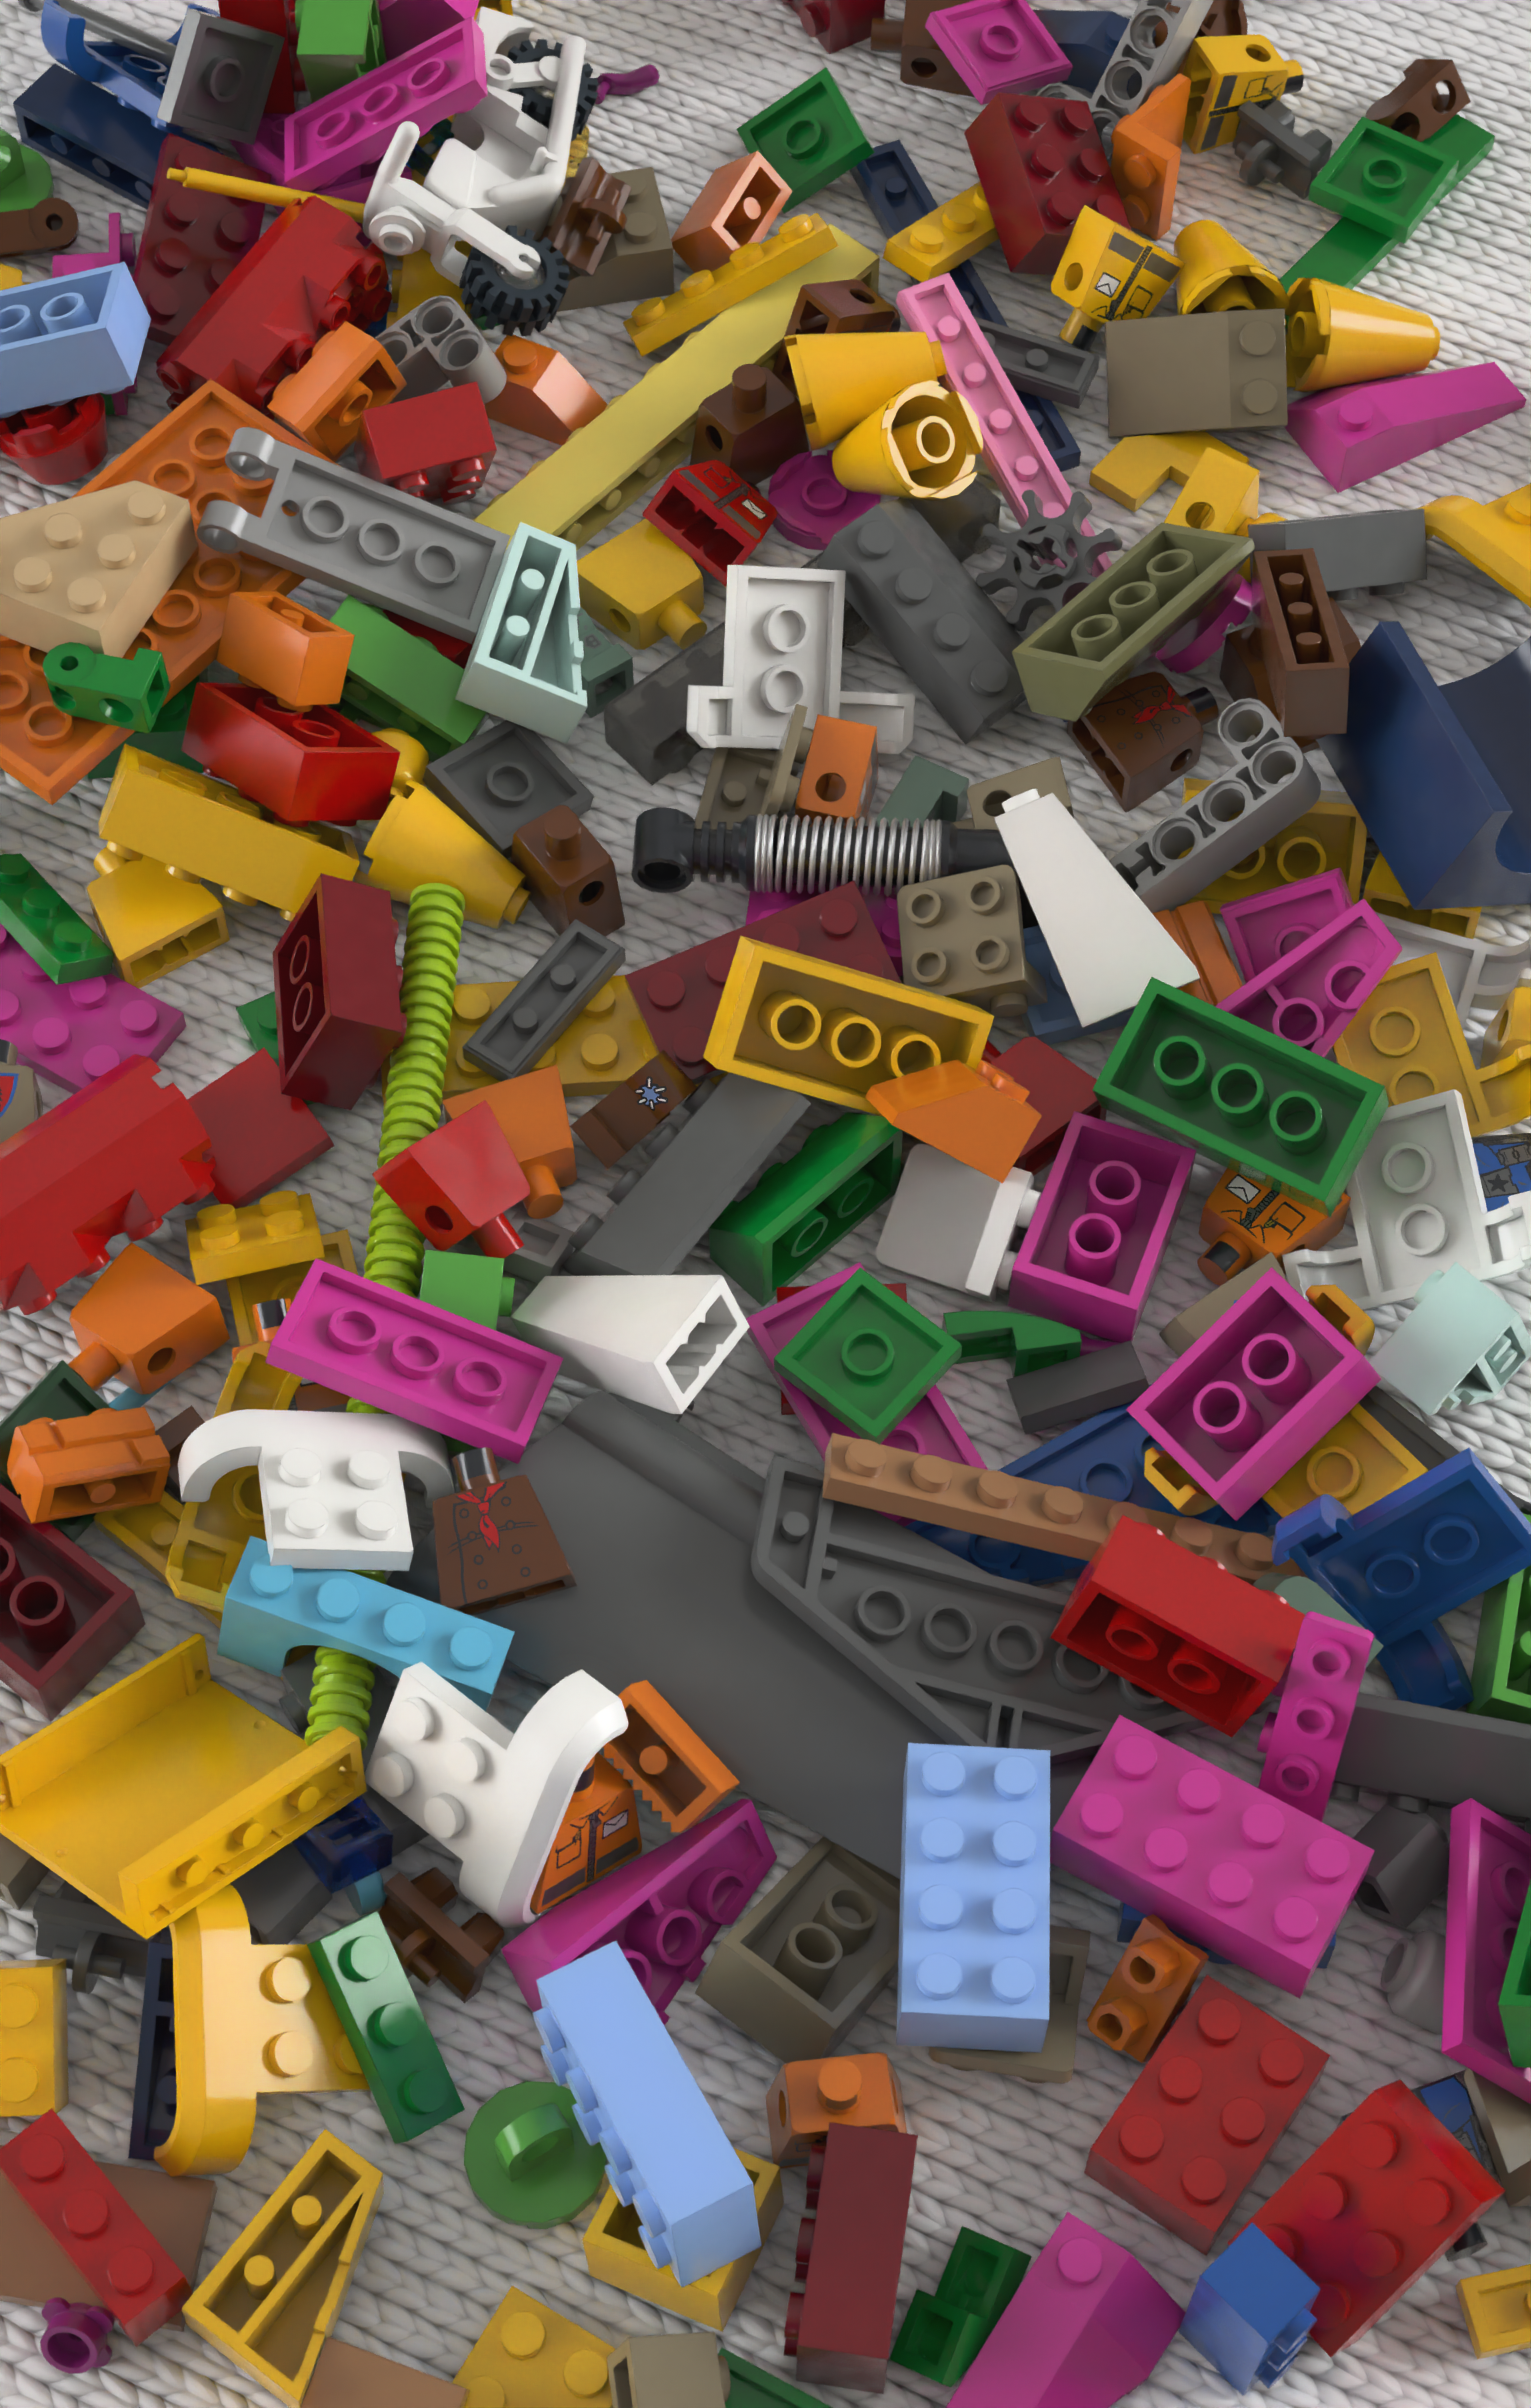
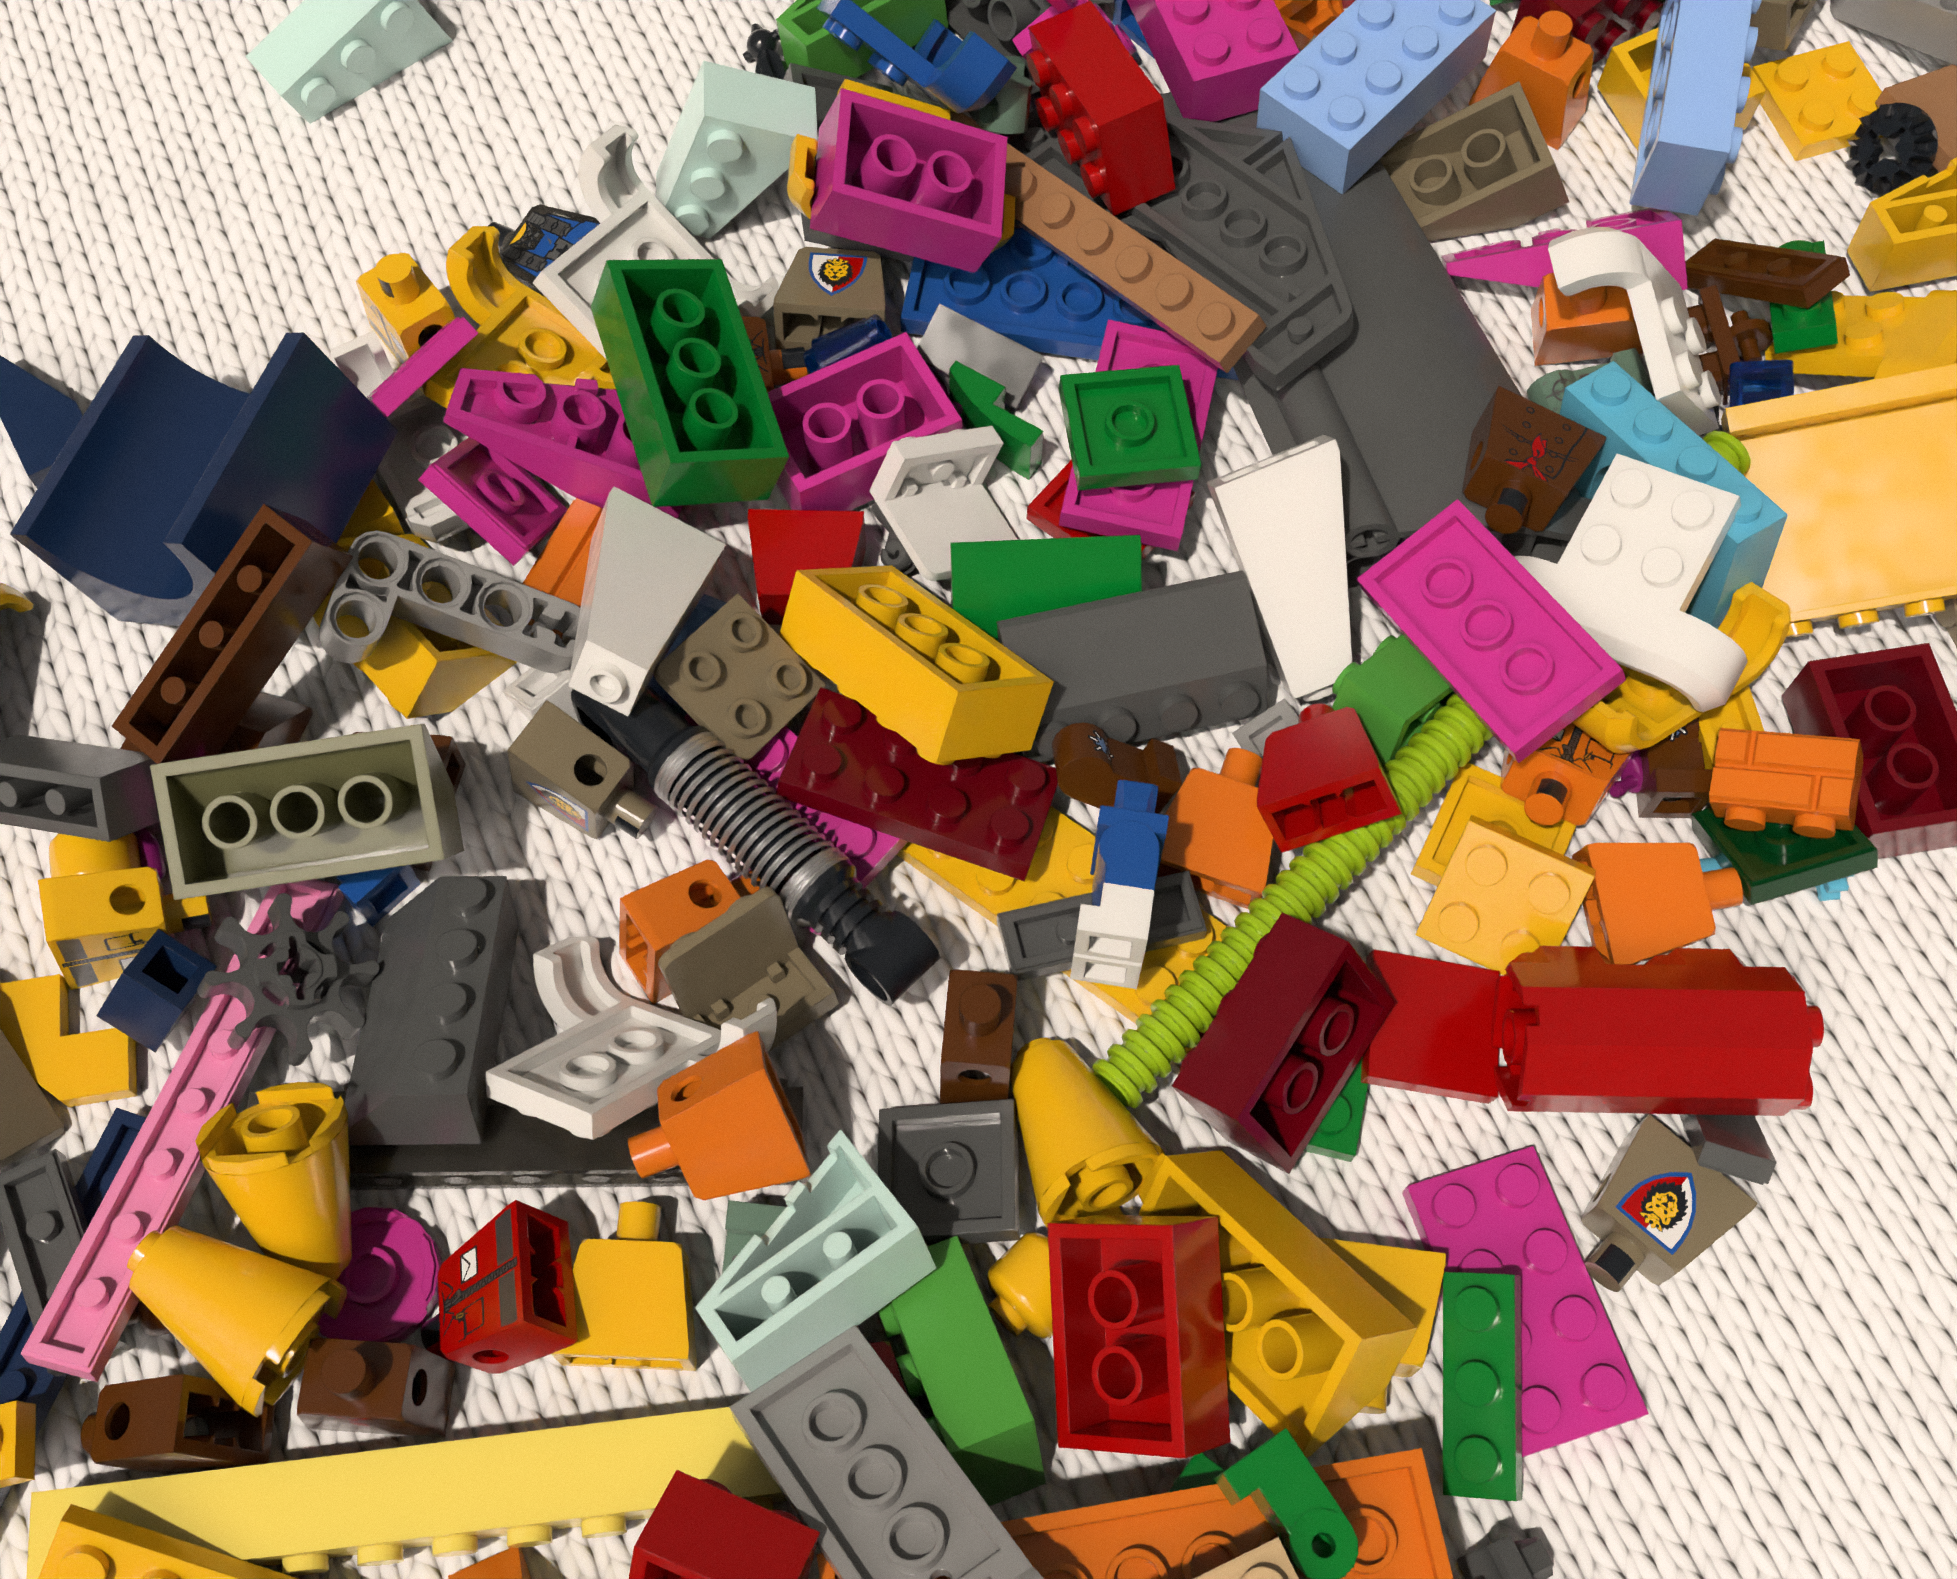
camera: 140 degrees left, 5 degrees up
(284, 649) = (1069, 1426): orange brick -> none
(412, 2331) = (1916, 147): none -> black gear
(438, 2008) = (1766, 272): none -> reddish brown tile
(531, 2157) = (1750, 204): bright green tile -> none
(535, 977) = (1125, 871): none -> hips
(667, 1760) = (1505, 287): orange brick -> none
(680, 641) = (725, 1125): none -> orange torso
(927, 793) = (633, 866): sand green leg -> none
(962, 1112) = (903, 518): orange slope -> none
(1130, 506) = (155, 990): none -> dark blue brick
(1179, 1281) = (845, 342): none -> clear blue cone
(1459, 964) = (422, 365): none -> dark pink tile

